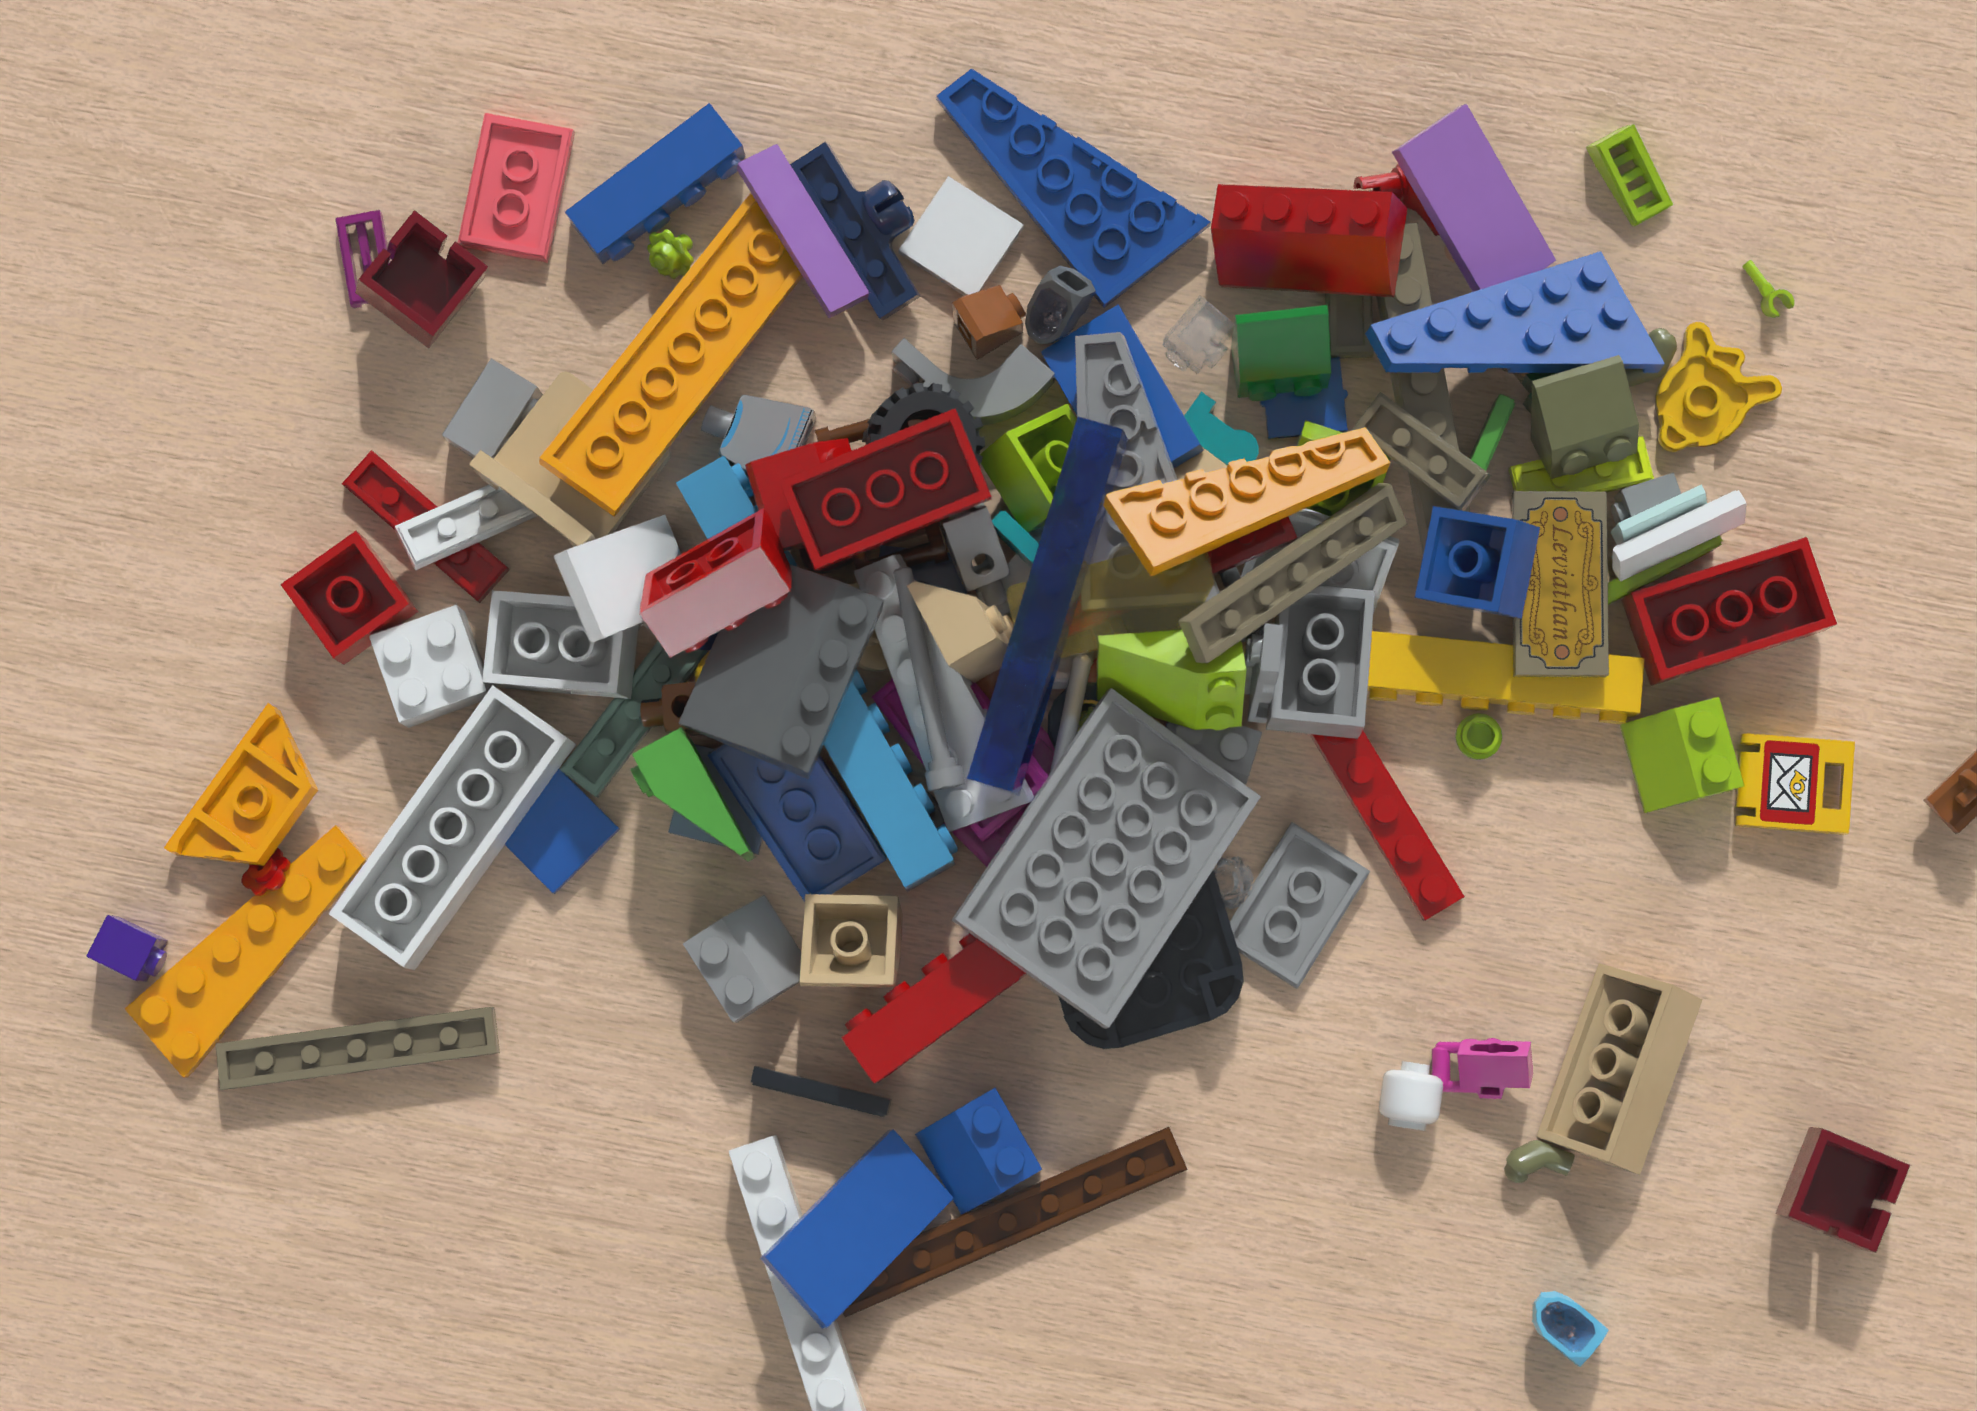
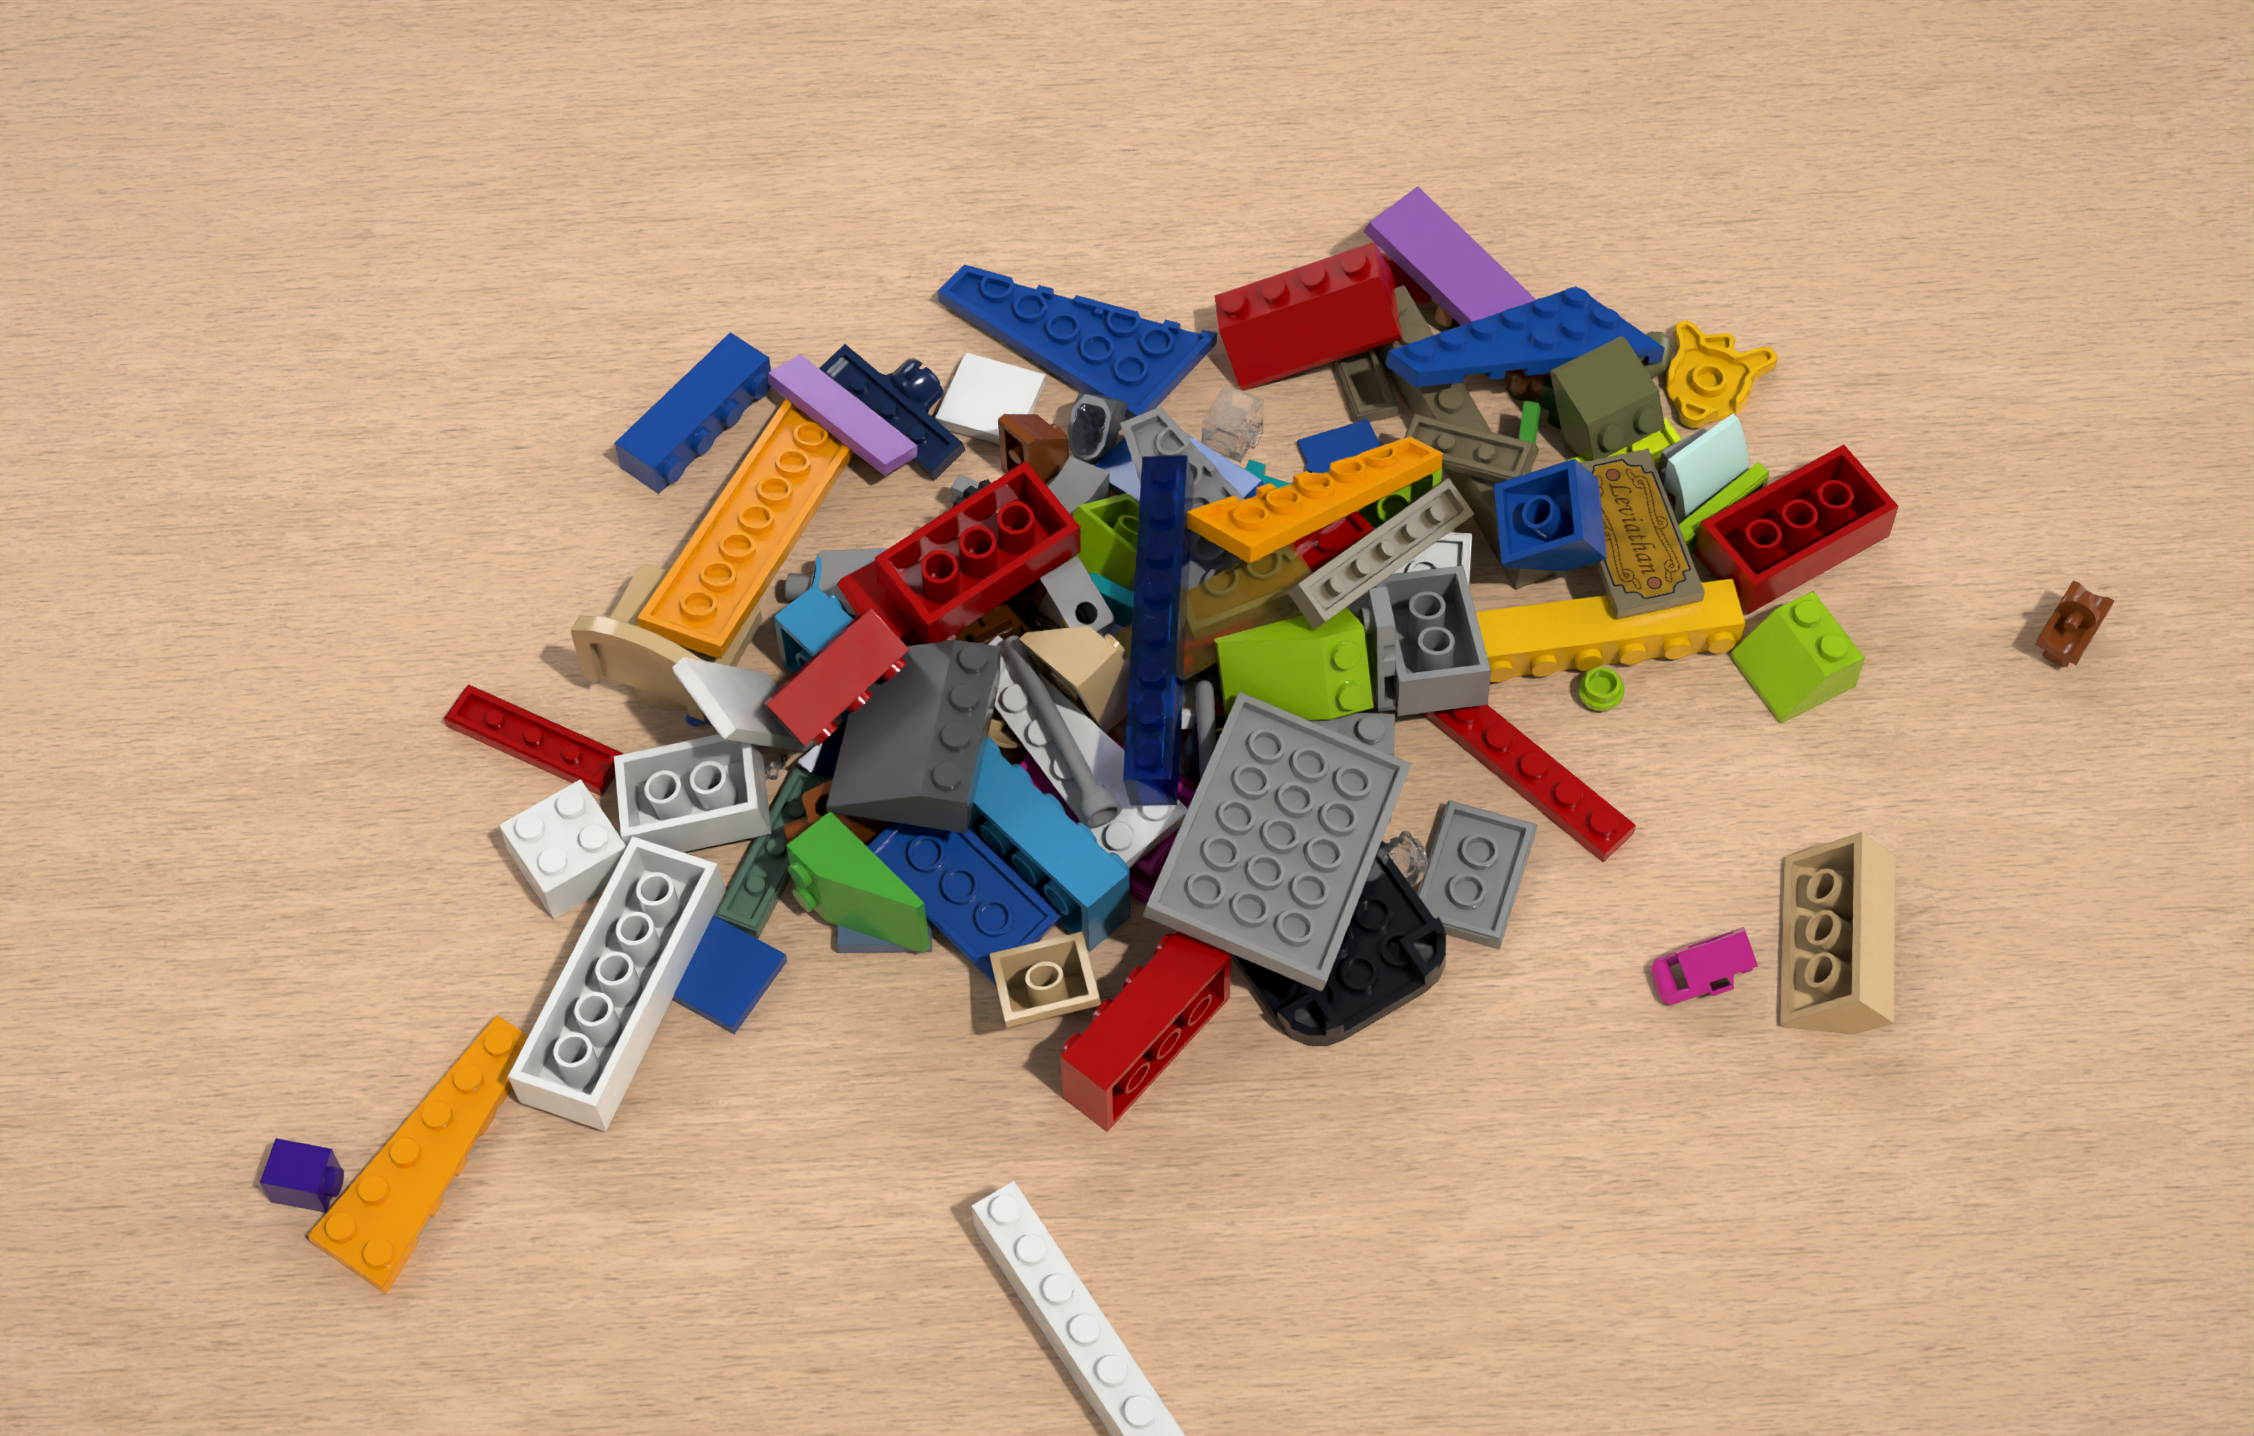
camera: 15 degrees left, 25 degrees down
(250, 798) = (403, 1011): light orange wing -> none
(266, 877) = (432, 1073): red plant -> none
(348, 597) = (466, 801): red brick -> none
(357, 1048) = (560, 1216): dark tan plate -> none
(360, 221) = (442, 559): magenta tile -> none
(419, 285) = (476, 530): dark red piece -> none
(460, 524) = (573, 720): white tile -> none
(491, 411) = (578, 598): light grey brick -> none
(516, 187) = (562, 448): coral tile -> none
(670, 253) = (719, 462): lime plant -> none
(747, 958) = (942, 1042): light grey slope -> none
(820, 1091) = (1052, 1142): black tile -> none
(857, 1228) = (1123, 1251): blue tile -> none
(978, 1151) = (1229, 1159): blue slope -> none
(1026, 1214) = (1274, 1228): reddish brown tile -> none
(1281, 352) = (1313, 410): green slope -> none
(1411, 1096) = (1644, 1009): white head -> none
(1533, 1157) = (1787, 1037): olive arm -> none
(1567, 1326) = (1874, 1180): rock -> none
(1644, 167) = (1561, 226): lime slope -> none
(1679, 535) = (1727, 467): white tile -> none
(1768, 291) = (1740, 290): lime hand -> none
(1788, 783) = (1907, 664): container -> none
(1837, 1185) = (2089, 986): dark red piece -> none

